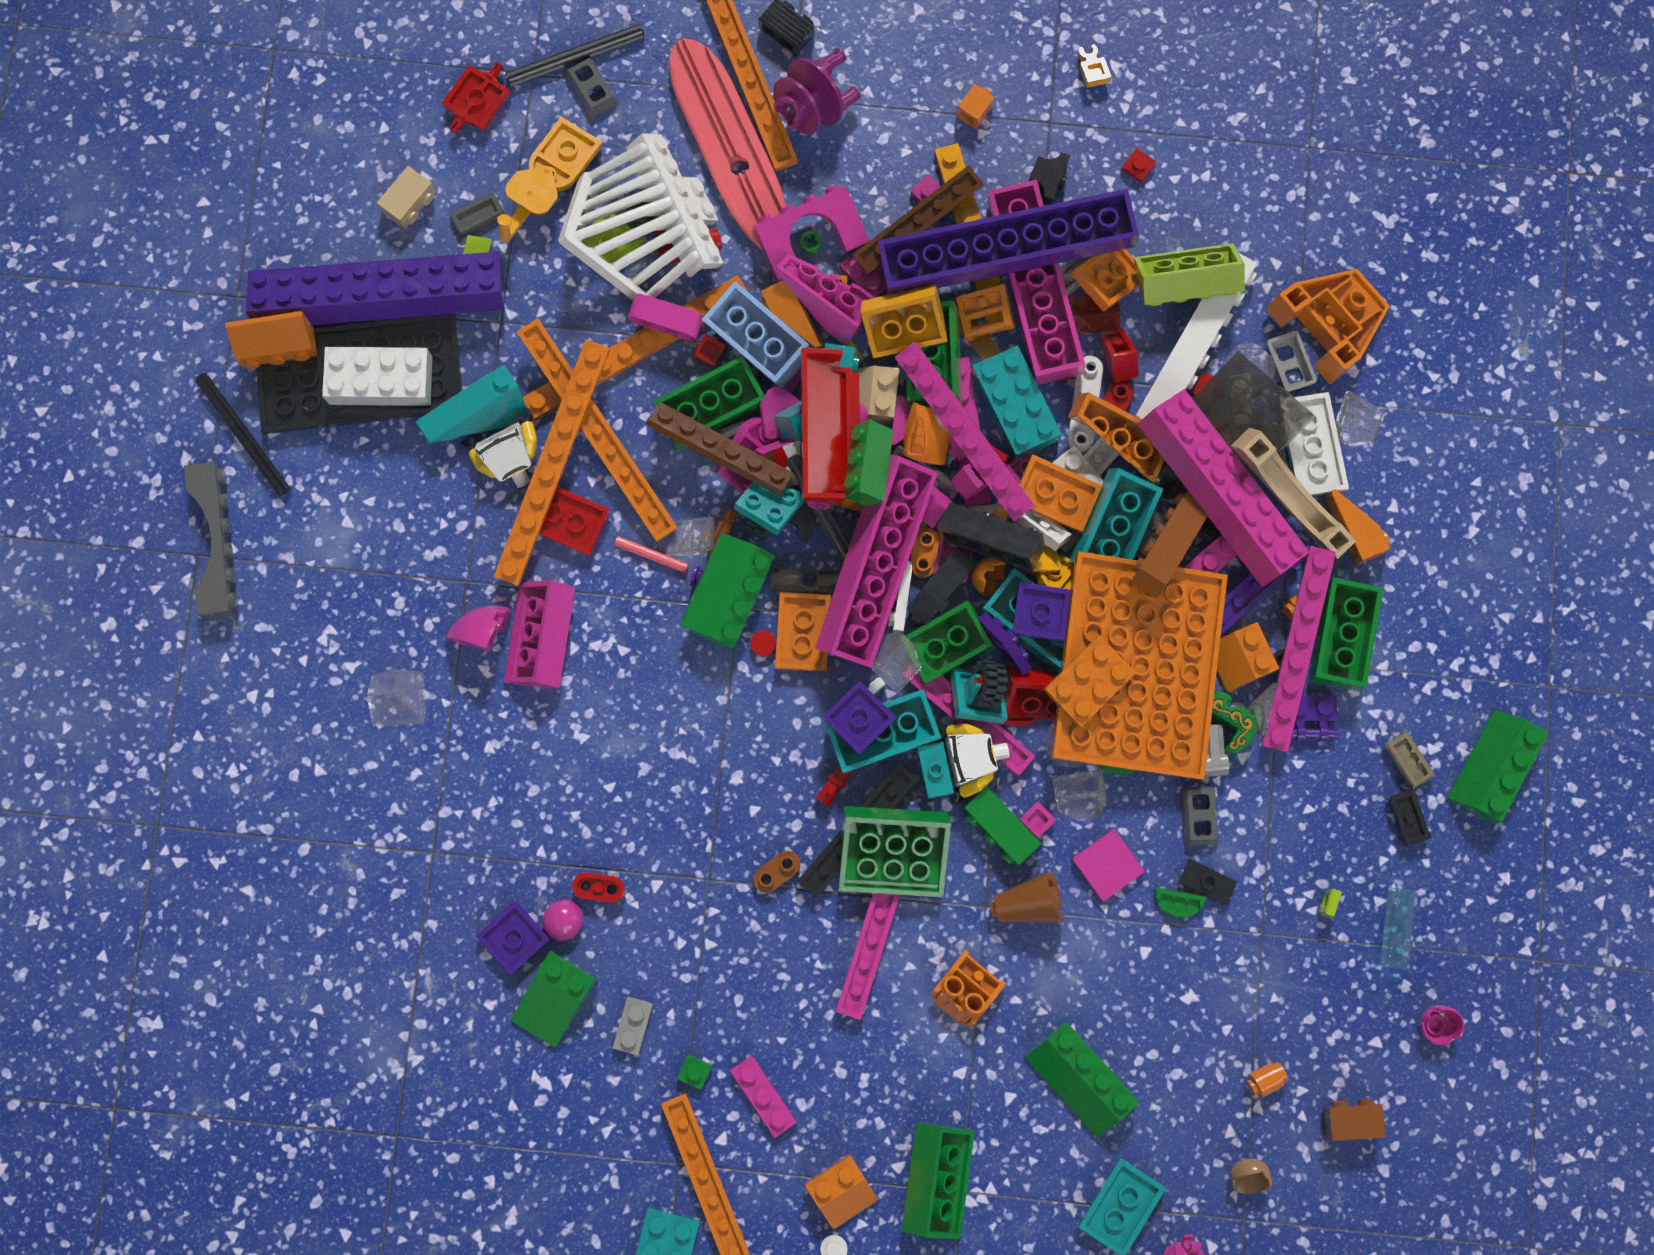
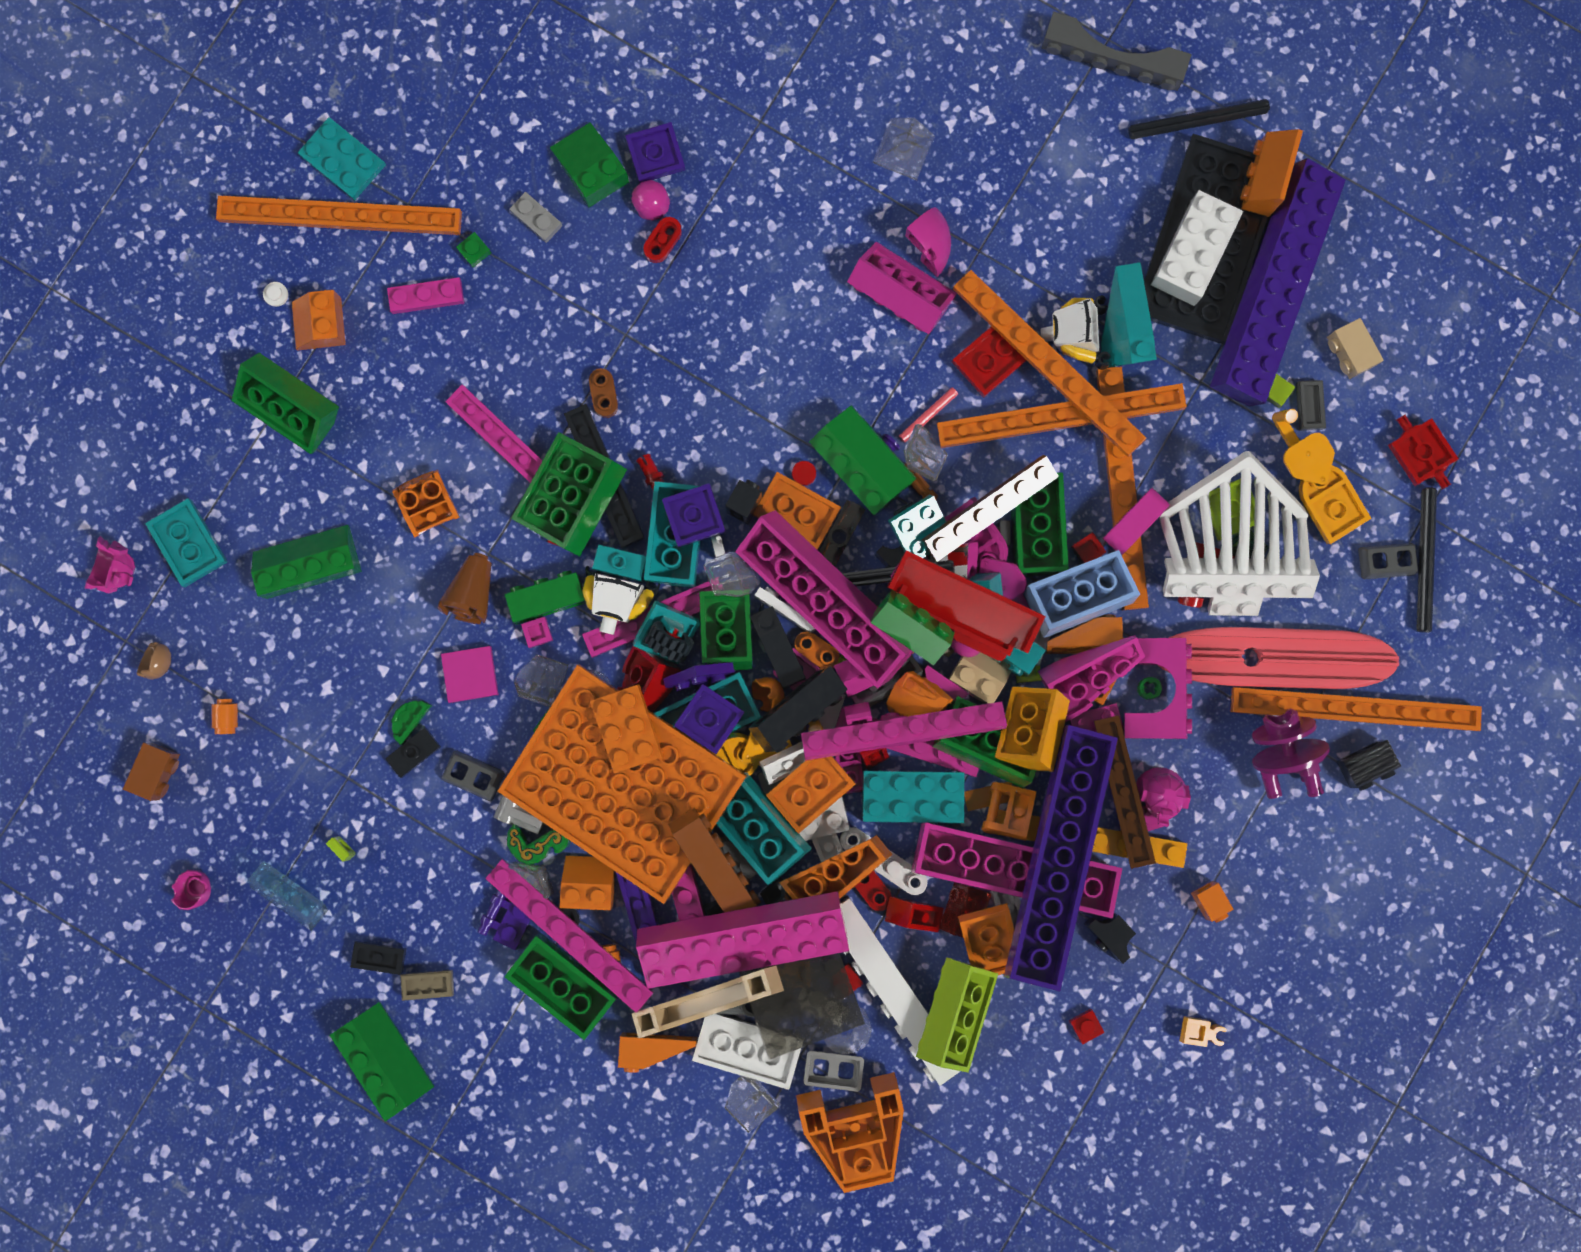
camera: 115 degrees right, 5 degrees up
(819, 681) = (744, 501): none -> black brick
(901, 188) = (1163, 793): none -> dark pink helmet

